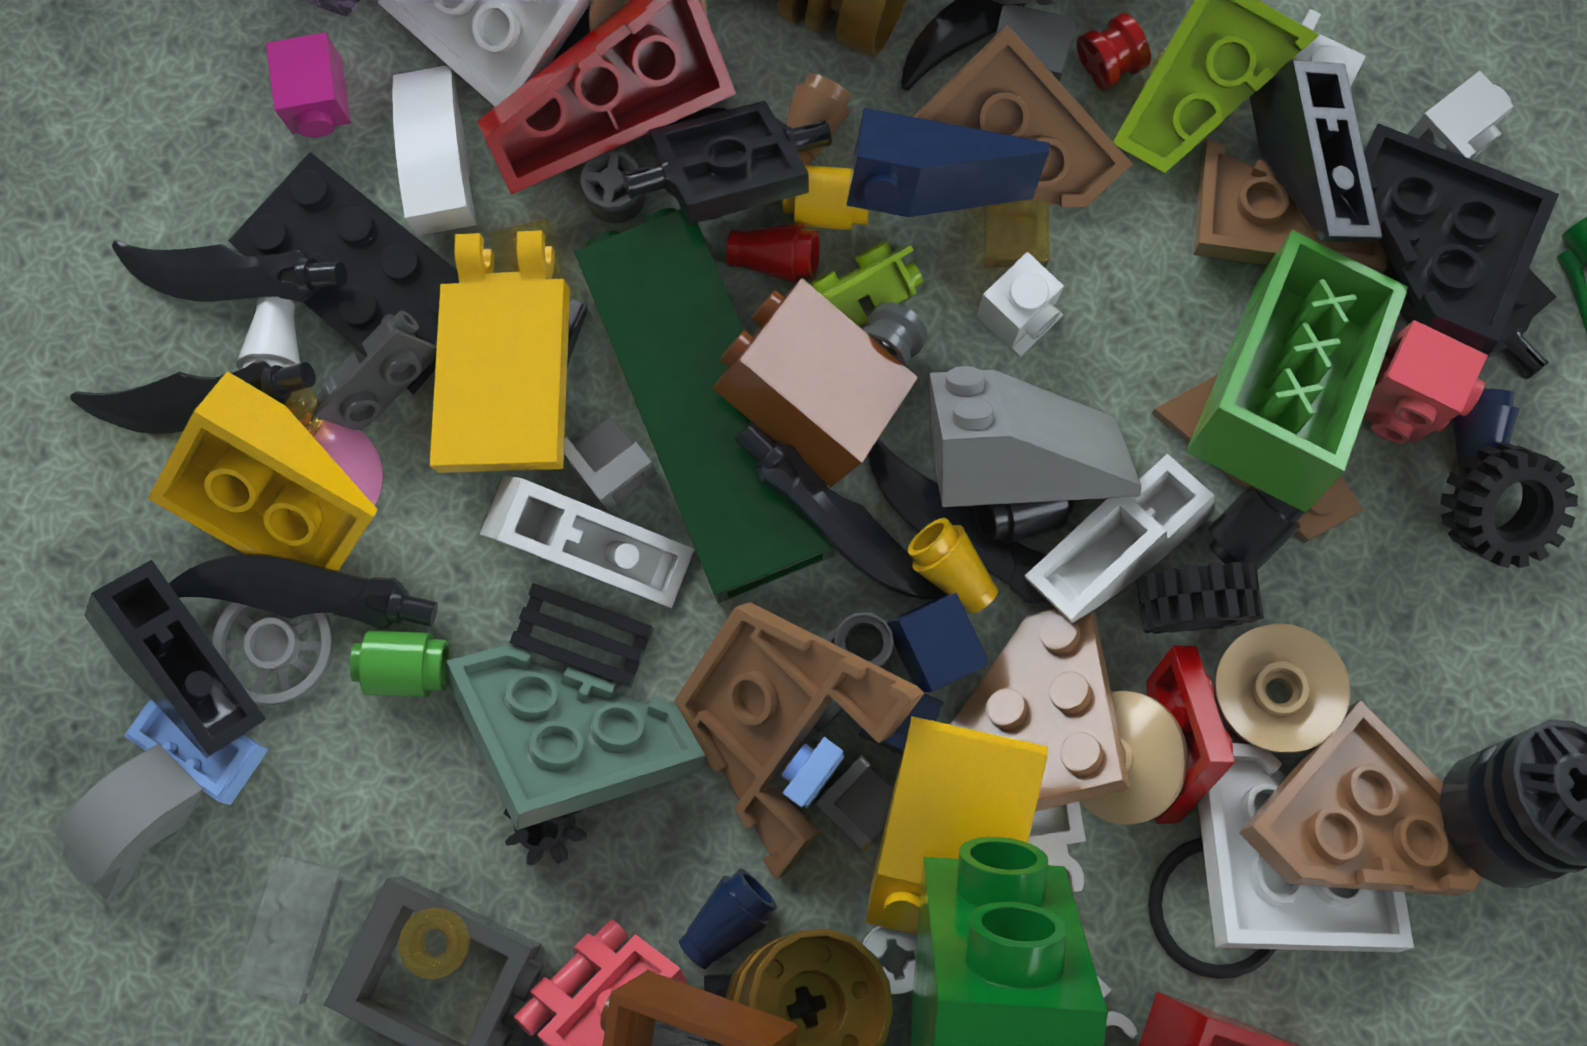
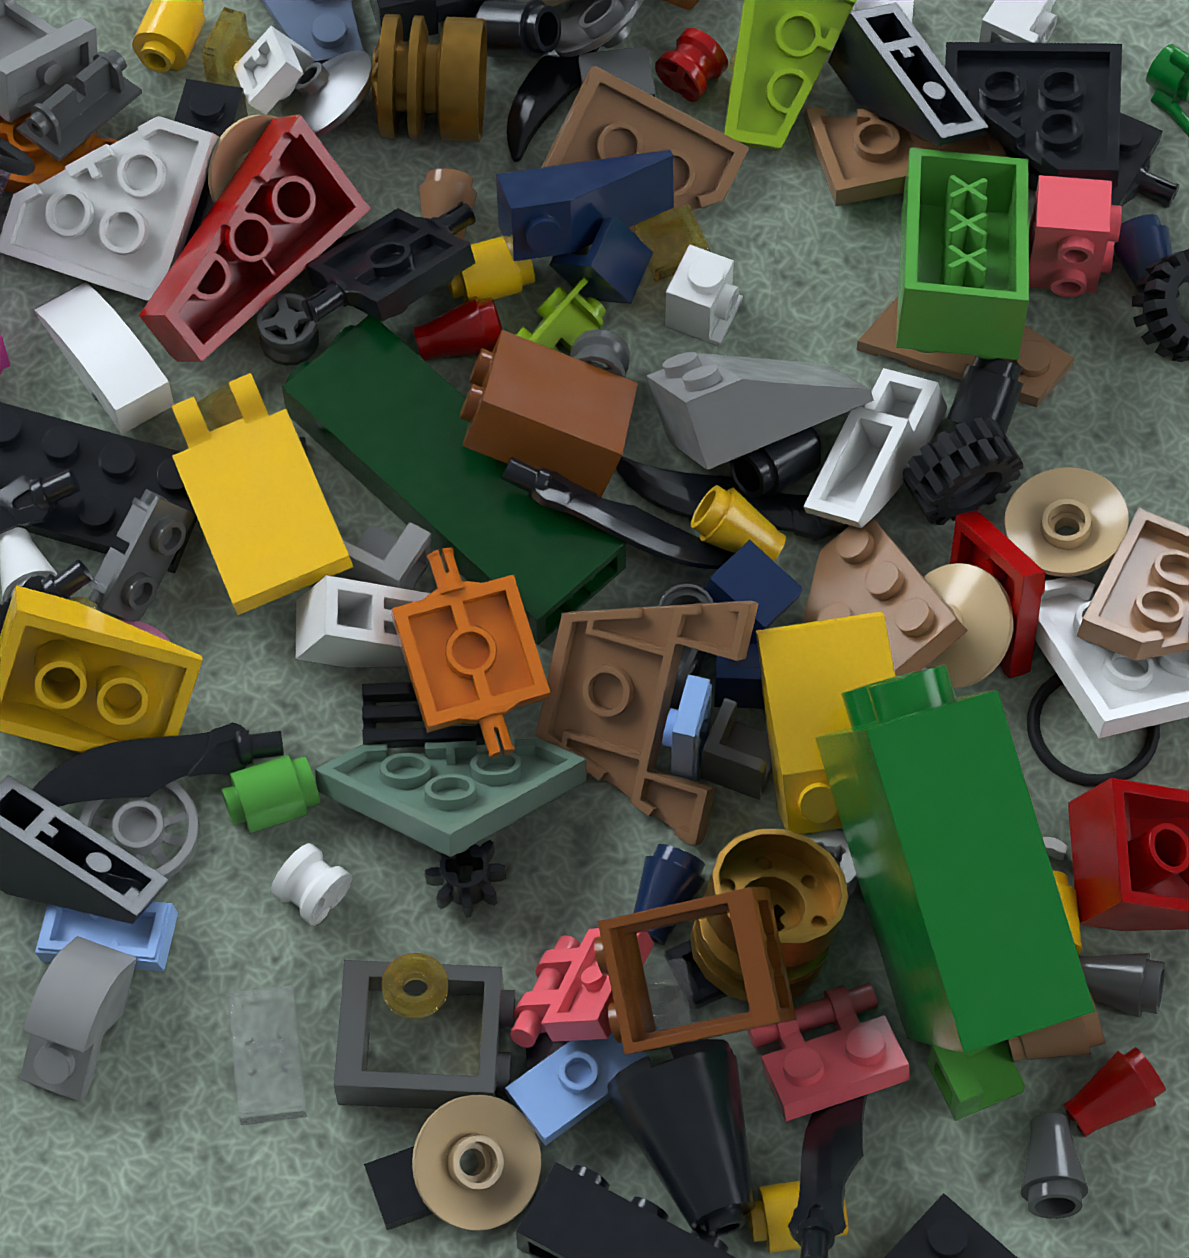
camera: 25 degrees left, 15 degrees down
(399, 772) = (311, 883): none -> white wheel
(633, 608) = (470, 653): none -> orange plate
(946, 240) = (610, 267): none -> dark blue panel

